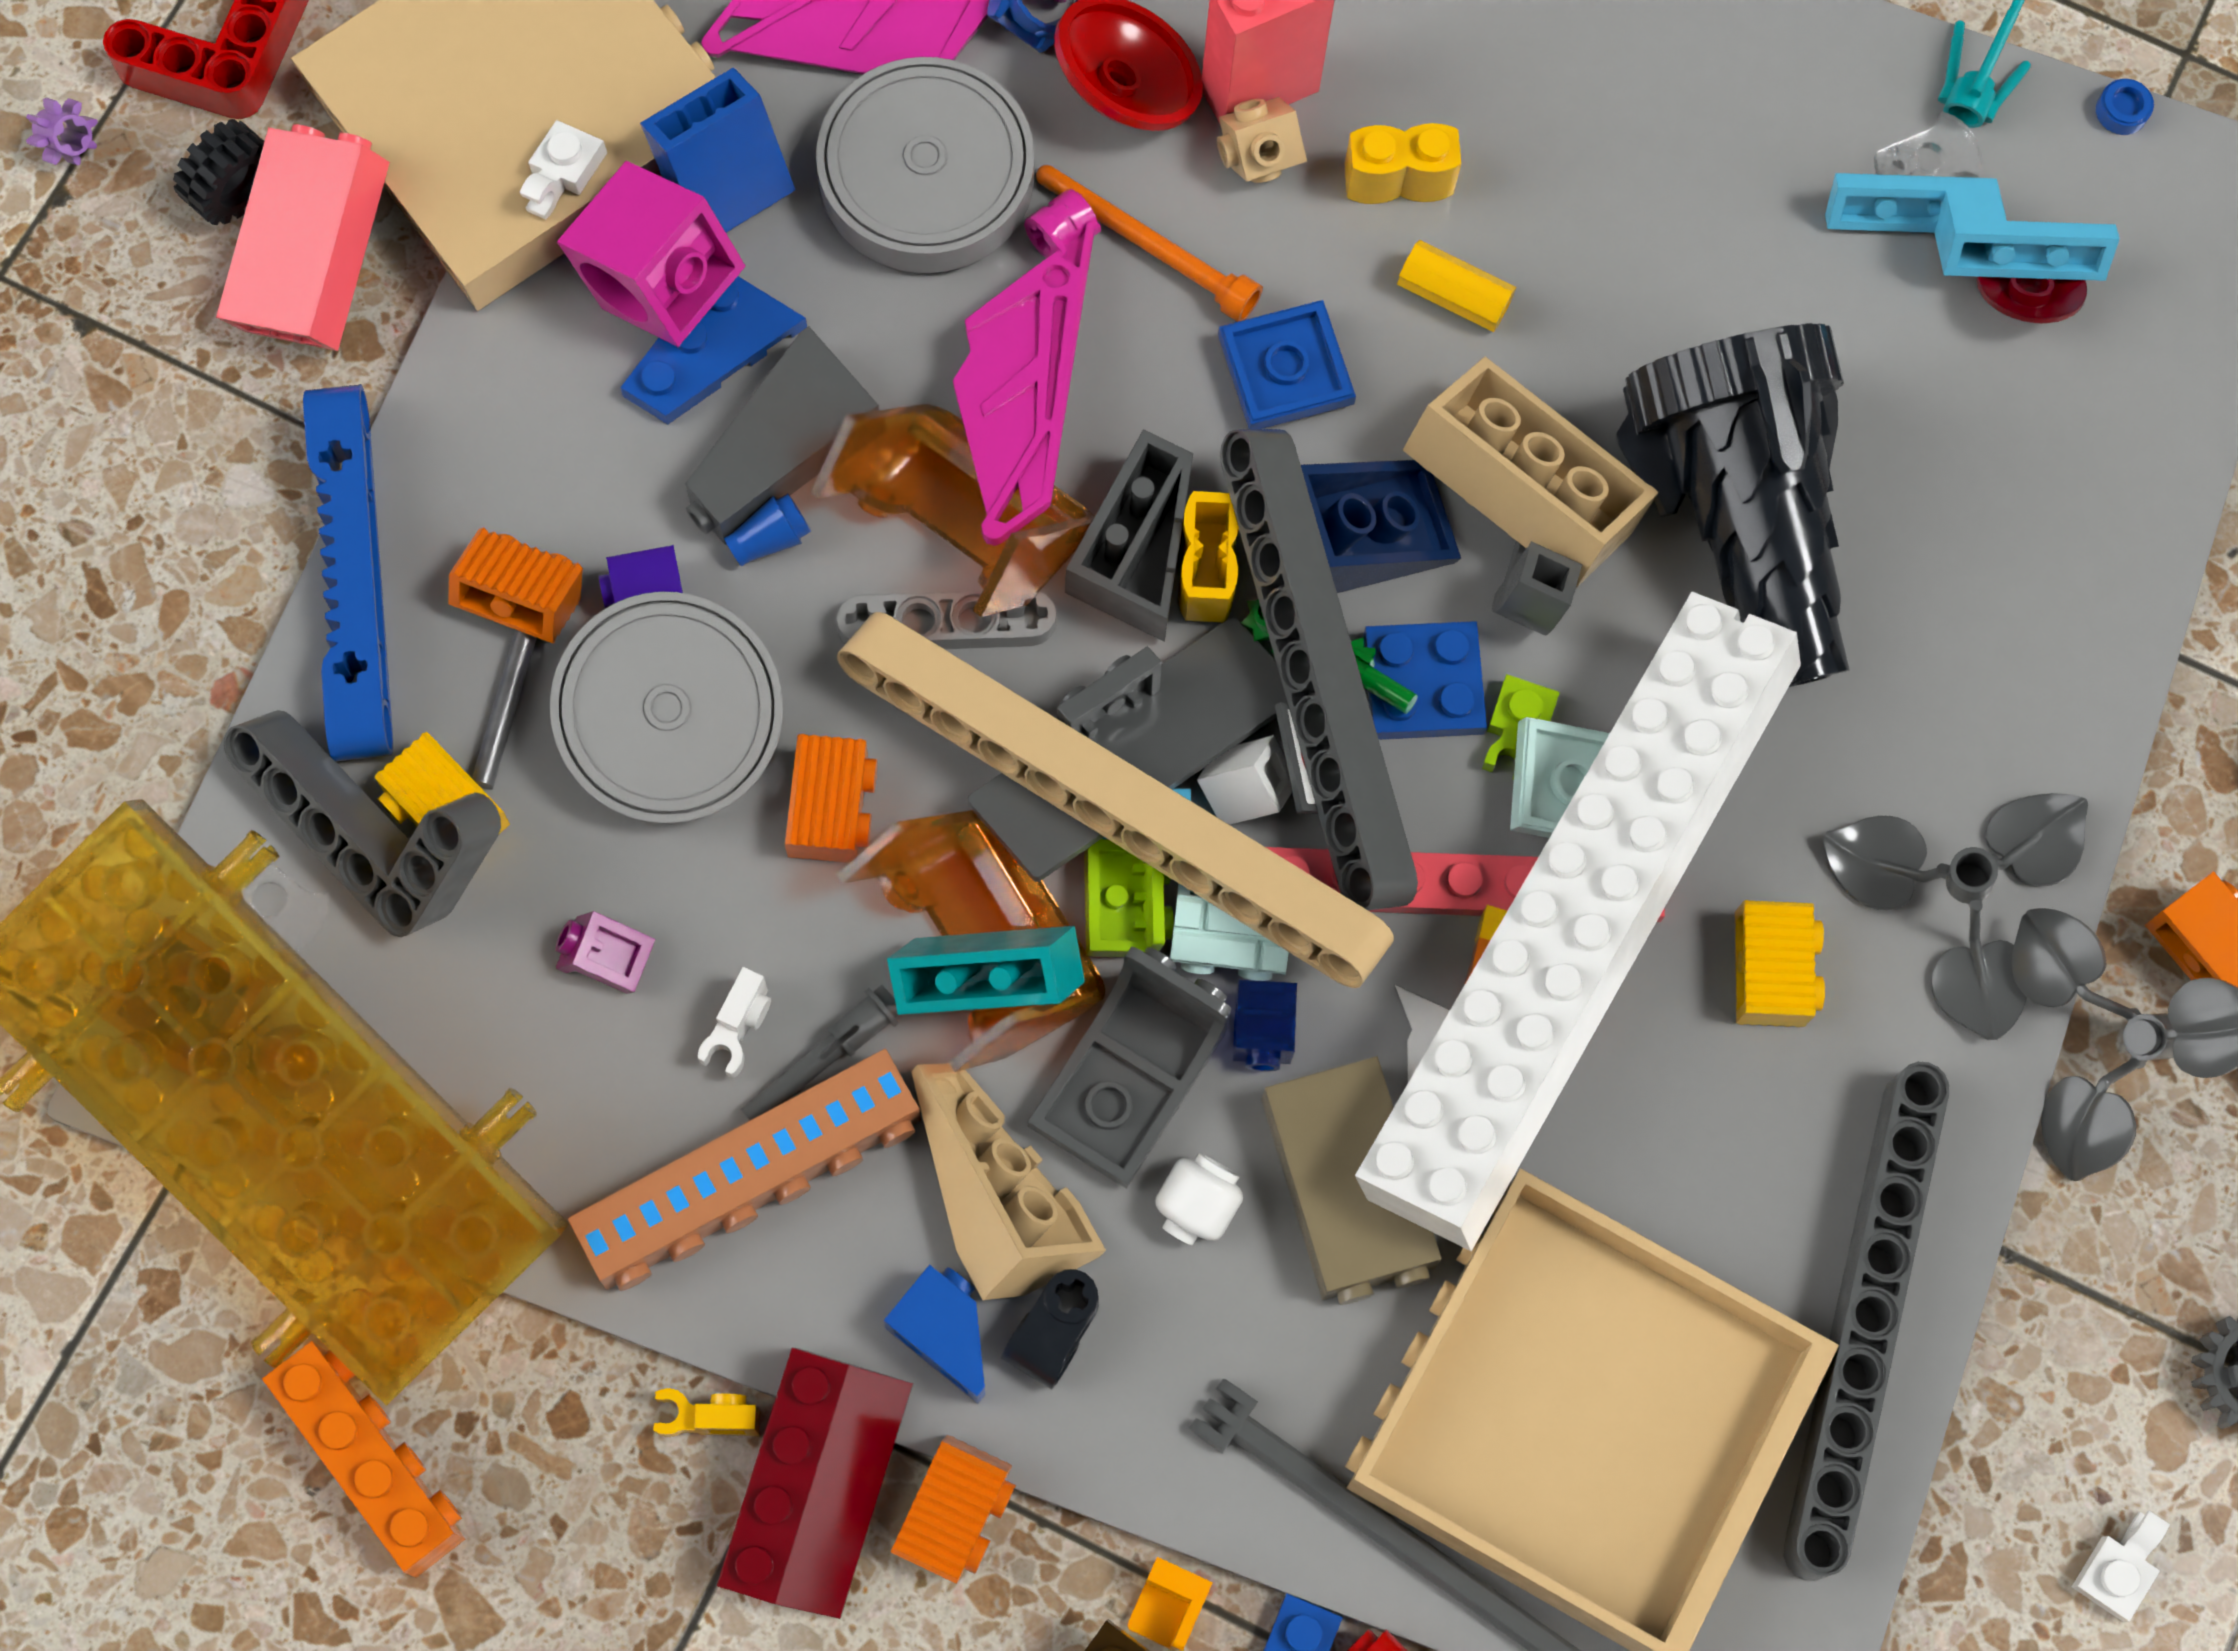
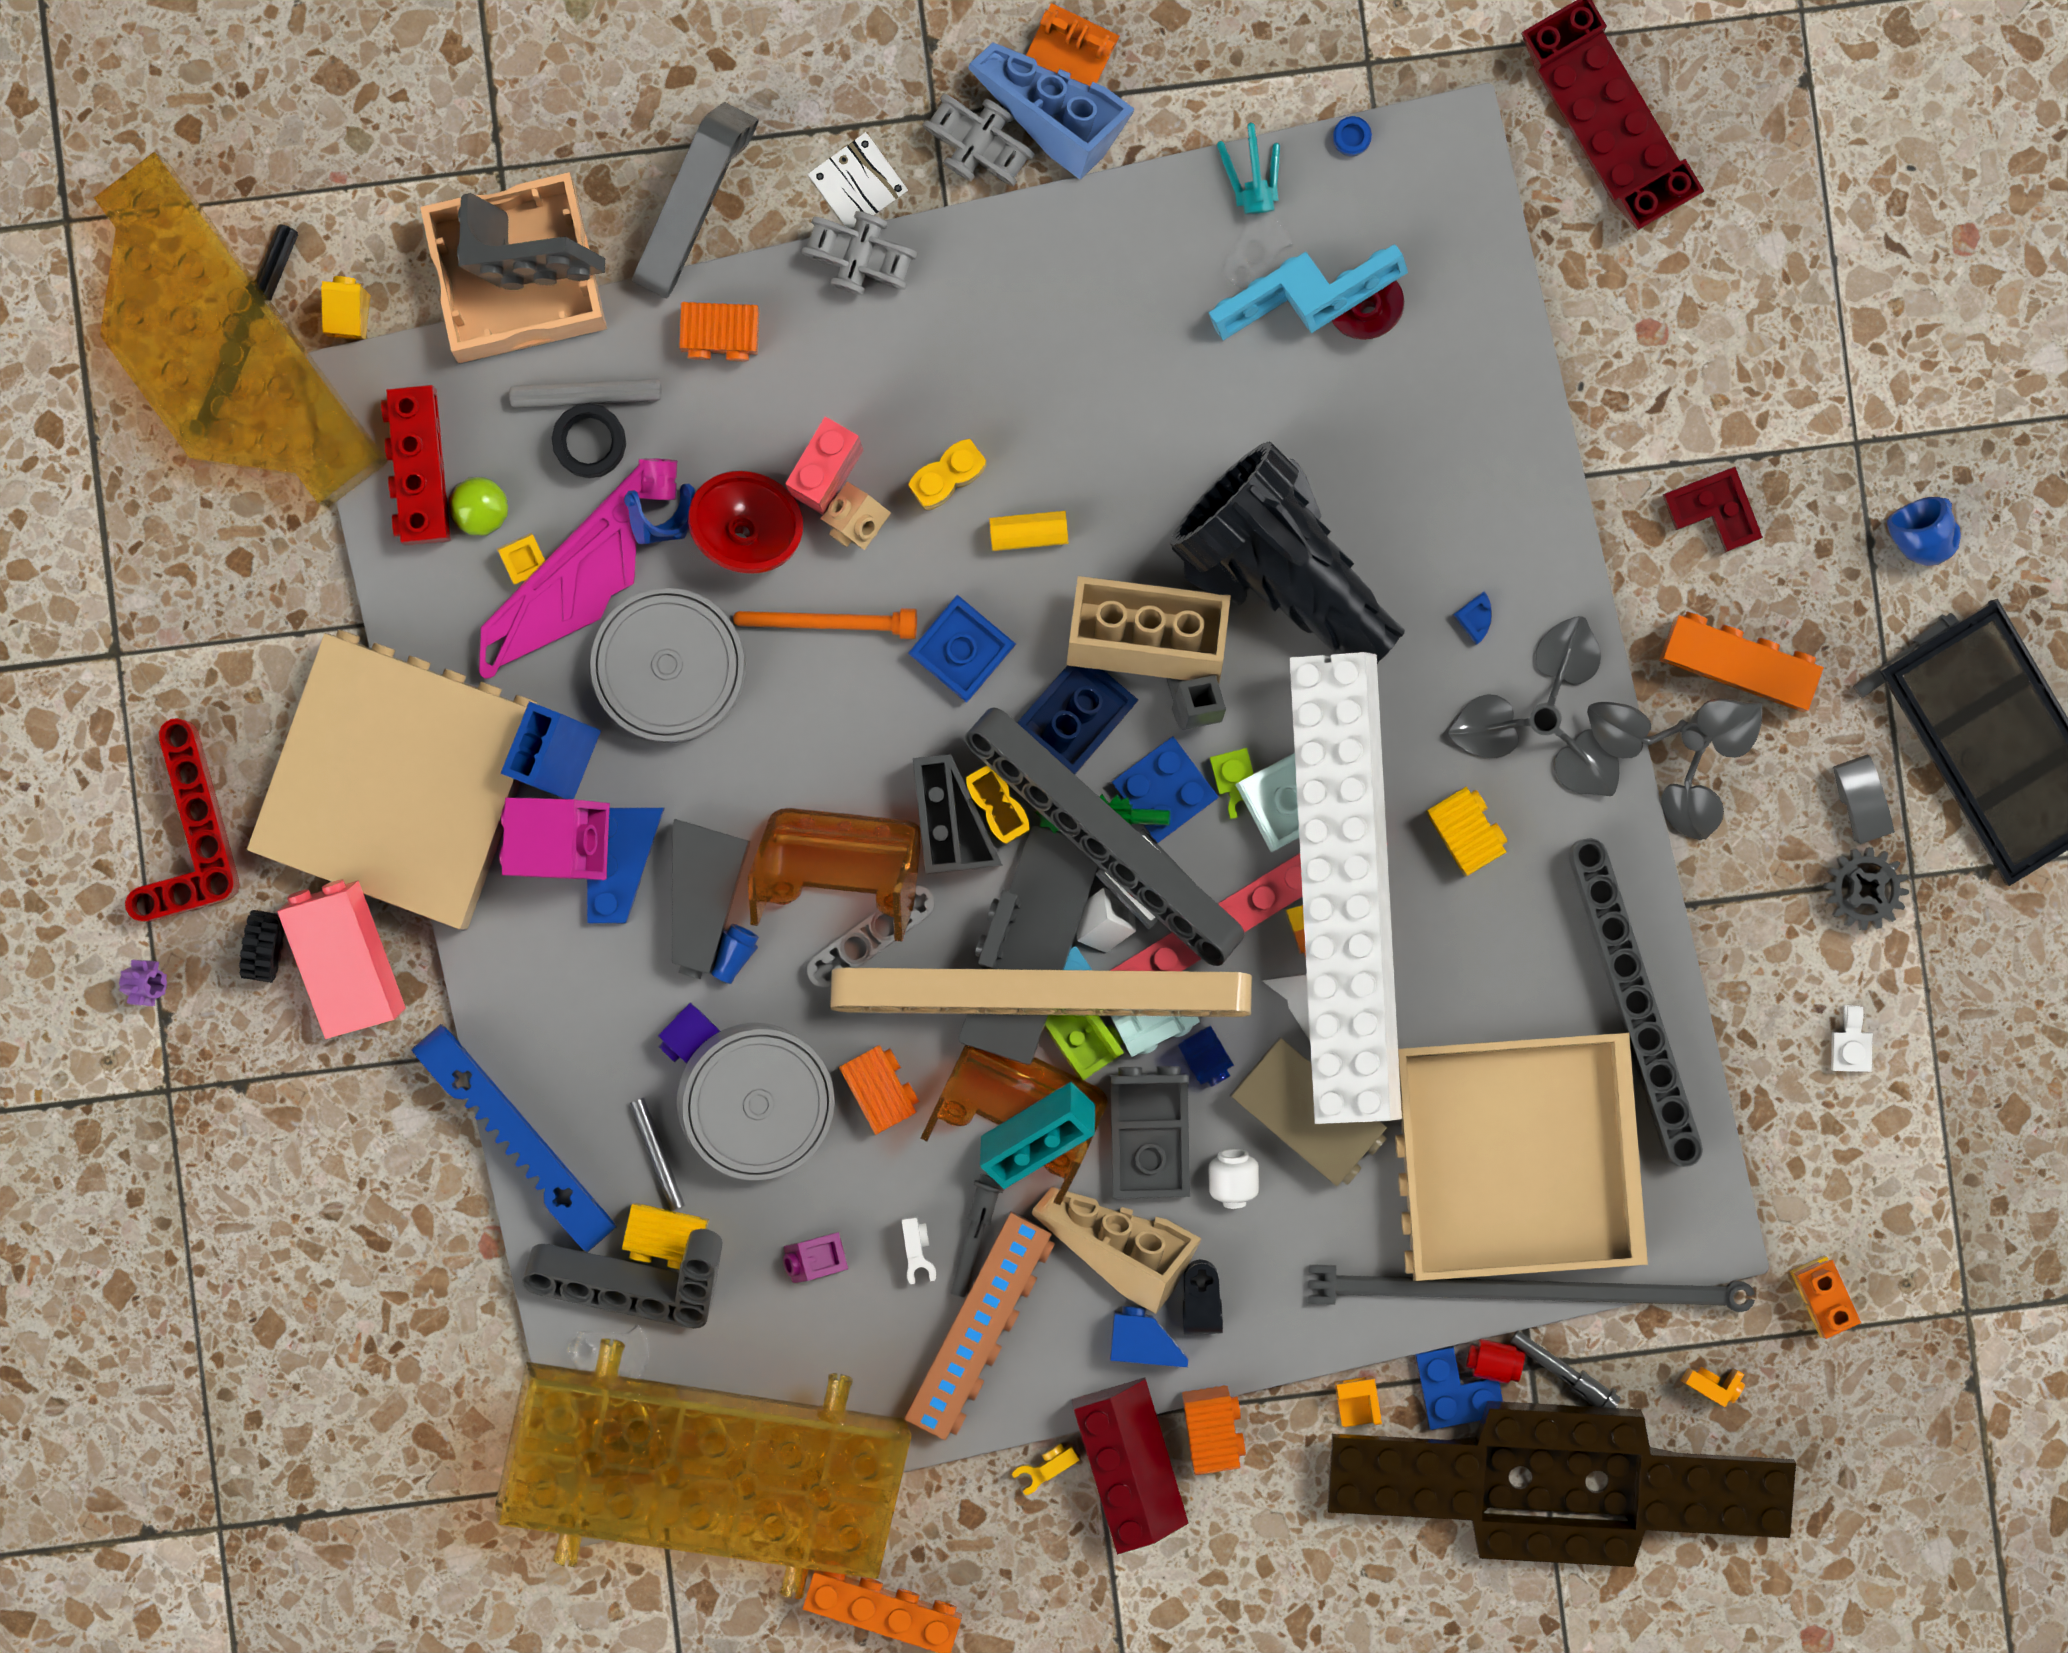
camera: 30 degrees left, 15 degrees up
(516, 585) = (616, 1083): orange brick -> none
(561, 162) = (465, 816): white plate -> none
(1022, 366) = (814, 761): dark pink wing -> none
(1943, 723) = (1476, 617): none -> blue tile

